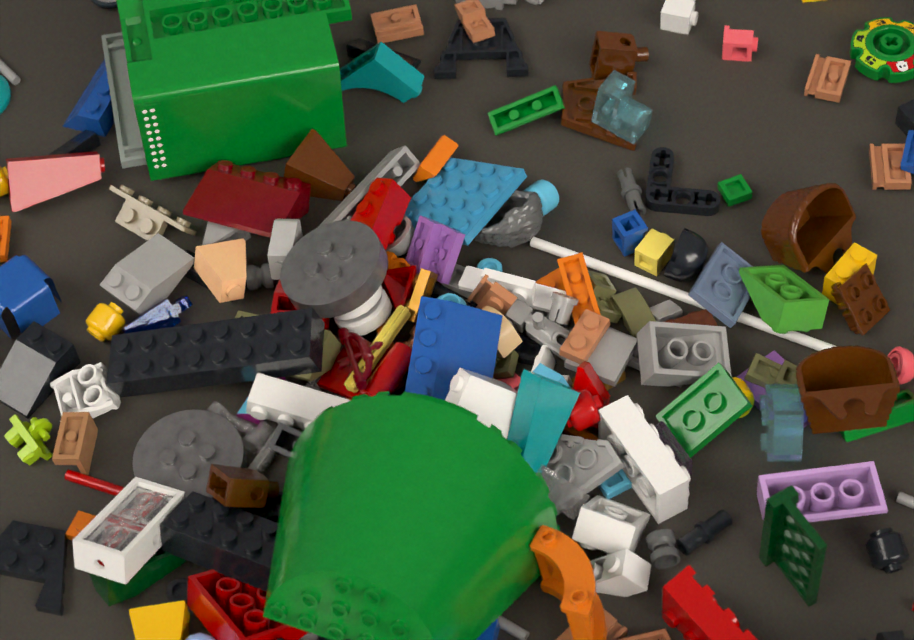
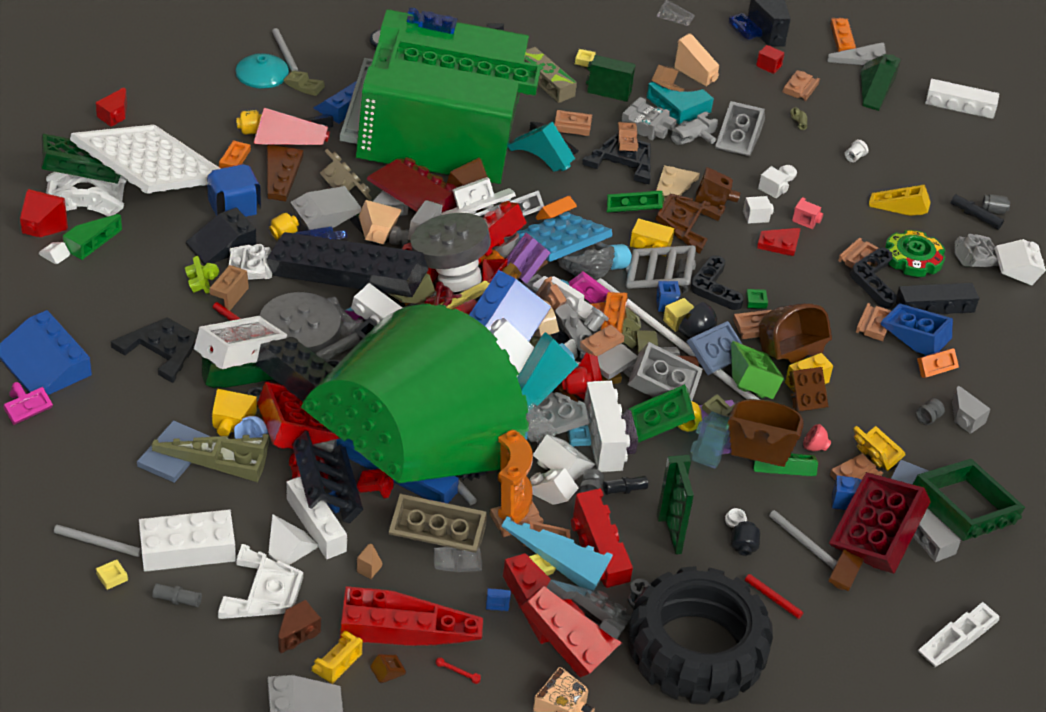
camera: 10 degrees right, 10 degrees down
(32, 95) = (302, 83): none -> olive slope
(64, 234) = (282, 170): none -> reddish brown wing
(240, 486) = (321, 342): reddish brown torso -> none
(332, 186) = (478, 196): none -> white bracket
(530, 262) = (590, 288): none -> dark pink plate
(558, 60) = (676, 181): none -> tan wing
(569, 152) = (651, 235): none -> yellow brick
(581, 173) = (653, 253): none -> light grey bar
(618, 111) = (697, 219): clear light blue brick -> none
(677, 62) = (757, 209): none -> white brick
(722, 94) = (779, 241): none -> red wing
(745, 228) = (748, 323): none -> nougat plate
(829, 491) = (724, 487): lavender slope -> none
(850, 101) = (868, 272): none -> black beam
(860, 526) = (735, 516): none -> white plate

